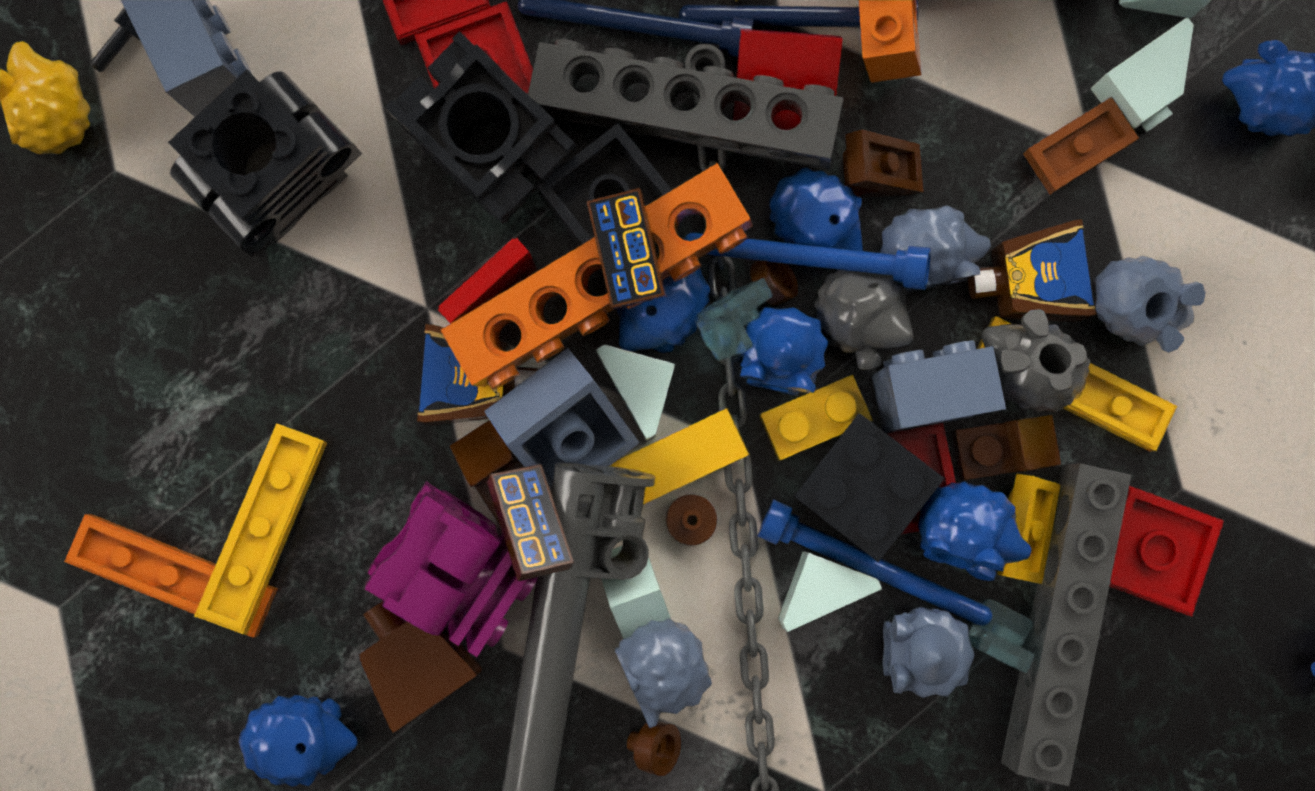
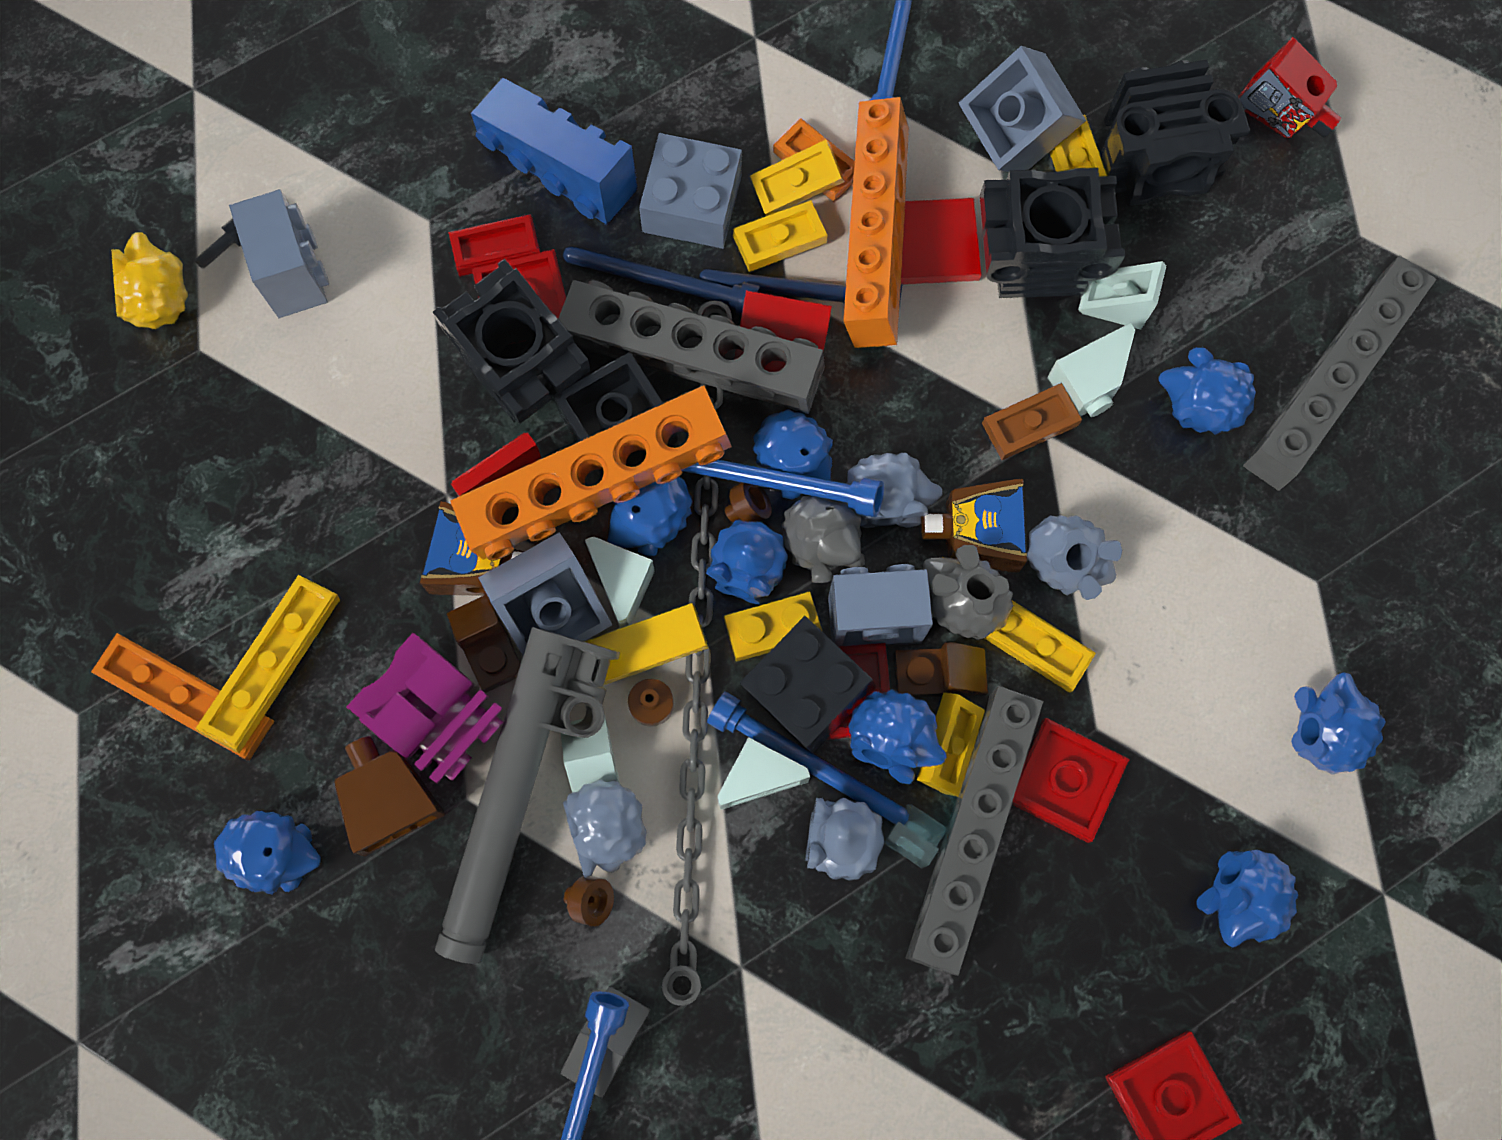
camera: 10 degrees right, 10 degrees down
(223, 136) = (331, 380): black piece -> none
(529, 522) = (501, 670): tile -> none
(626, 248) = (617, 447): tile -> none
(724, 319) = (698, 527): clear light blue bracket -> none
(881, 165) = (856, 417): reddish brown slope -> none

